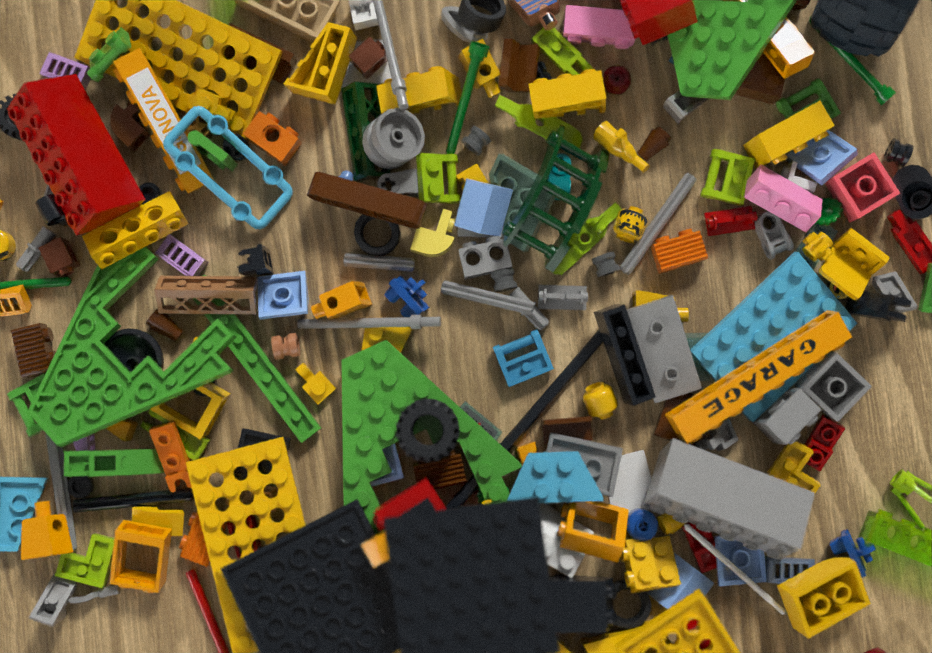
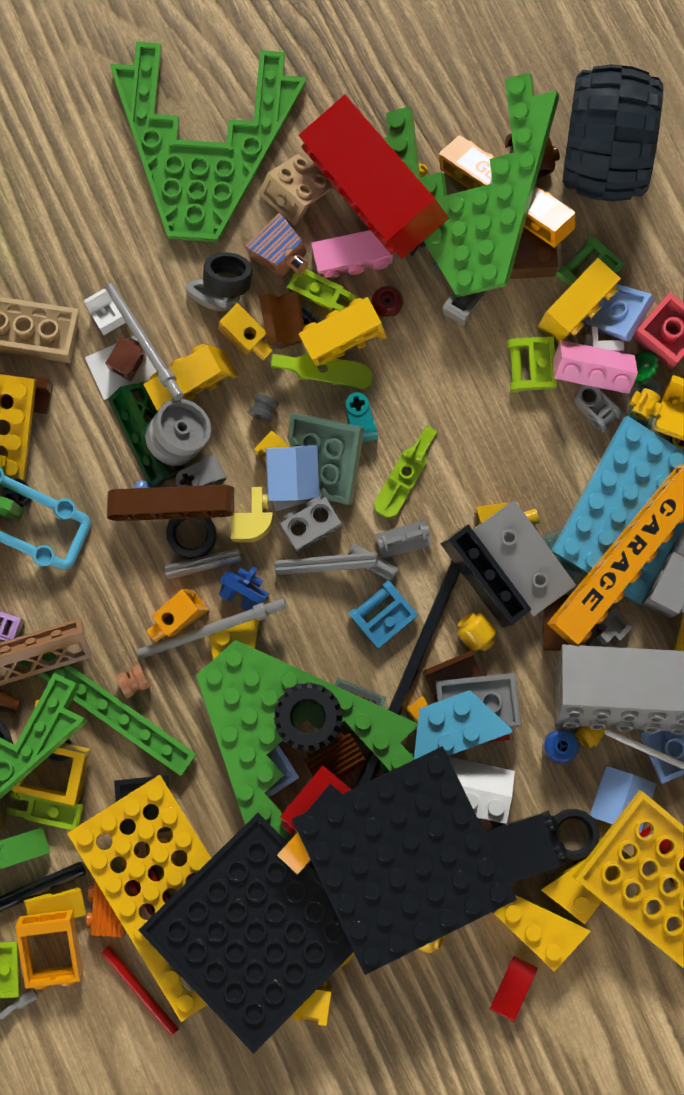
camera: 15 degrees left, 5 degrees down
(171, 454) = (48, 831): orange plate -> none
(258, 262) = (77, 605): black hinge -> none
(262, 127) = (64, 481): orange brick -> none
(282, 295) = (113, 629): light blue slope -> none
(317, 385) = (178, 711): yellow plate -> none
(325, 65) = (83, 381): yellow wedge -> none
(431, 178) = (229, 460): lime plate -> none
(477, 53) = (237, 320): green piece -> none
(503, 279) = (337, 540): dark grey wheel -> none
(581, 205) = (391, 438): dark green fence -> none
(588, 543) = (517, 780): light orange window -> none
(605, 264) = (437, 491): dark grey wheel -> none
(618, 145) = (410, 366): yellow piece -> none
(630, 224) = (448, 443): yellow head -> none
(632, 482) = (536, 709): white sticker -> none
(650, 564) = (582, 784): yellow plate -> none
(654, 143) = (446, 353): reddish brown cone -> none
(657, 223) = (476, 433): light grey axle -> none
(678, 251) = (507, 454): orange brick -> none
(704, 558) = (636, 759): red slope -> none
(730, 221) = (549, 407): red hinge -> none
(881, 91) = (660, 229): green piece -> none

